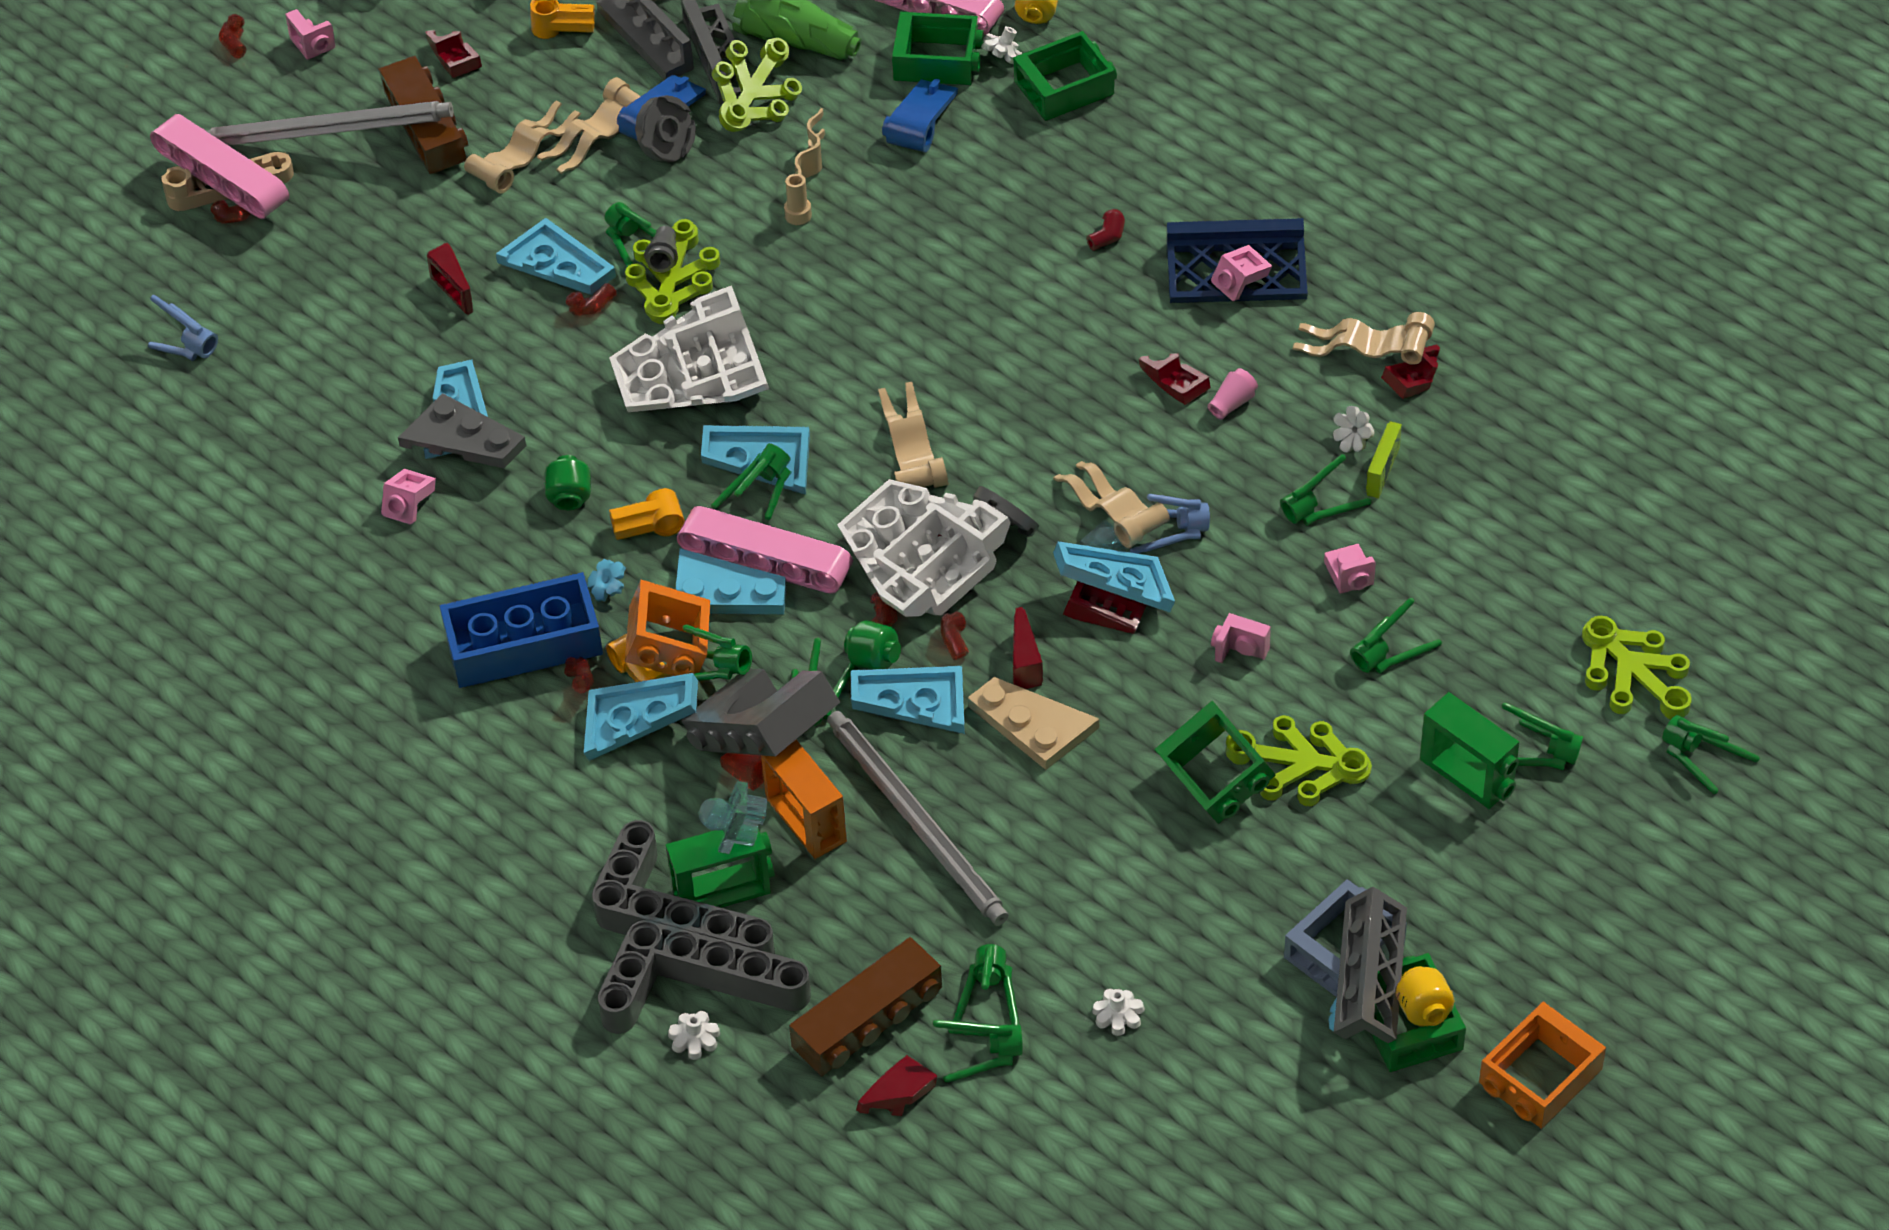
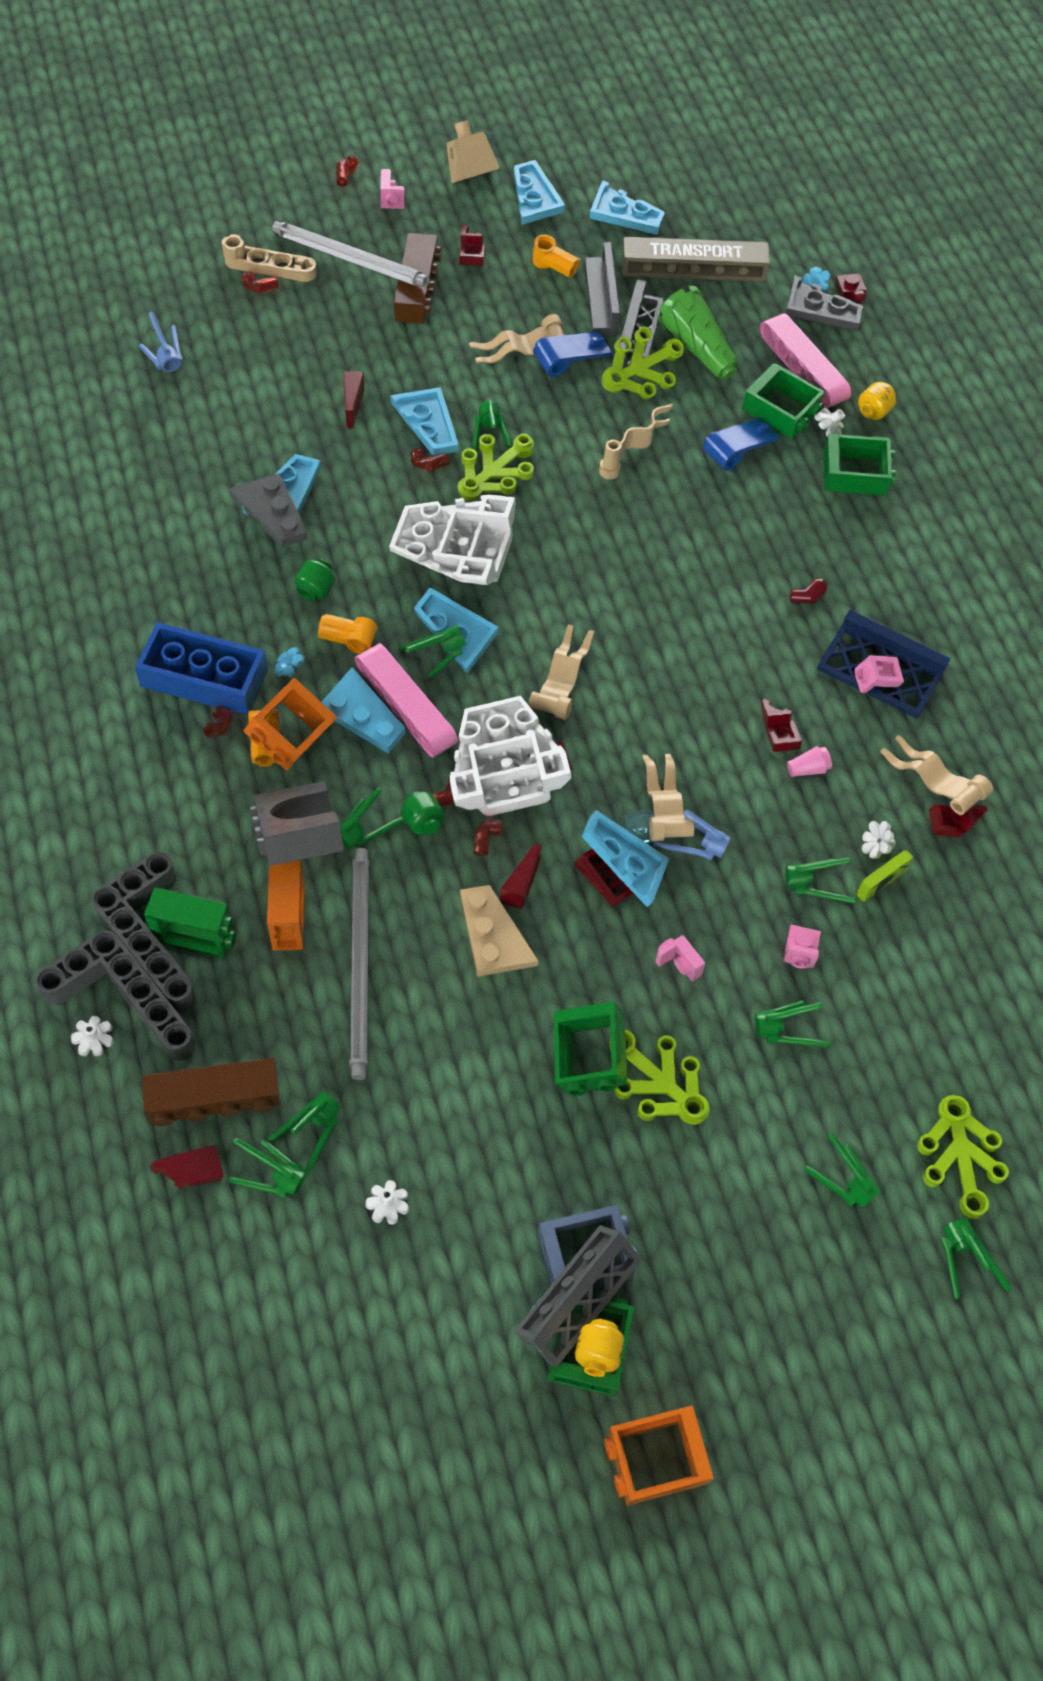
camera: 25 degrees right, 10 degrees up
(219, 166) = (263, 248): bright pink beam -> none
(404, 493) = (210, 528): bright pink bracket -> none
(498, 166) = (437, 337): tan flag -> none
(636, 709) = (230, 770): medium azure wing -> none
(662, 250) = (494, 449): dark grey cone -> none
(665, 129) = (559, 365): dark grey tile -> none
(728, 657) = (312, 768): green plant -> none
(736, 818) = (201, 899): clear light blue hips -> none
(912, 694) = (424, 866): medium azure wing -> none
(1025, 523) = (582, 765): dark grey tile -> none
(1491, 754) = (782, 1153): green window -> none

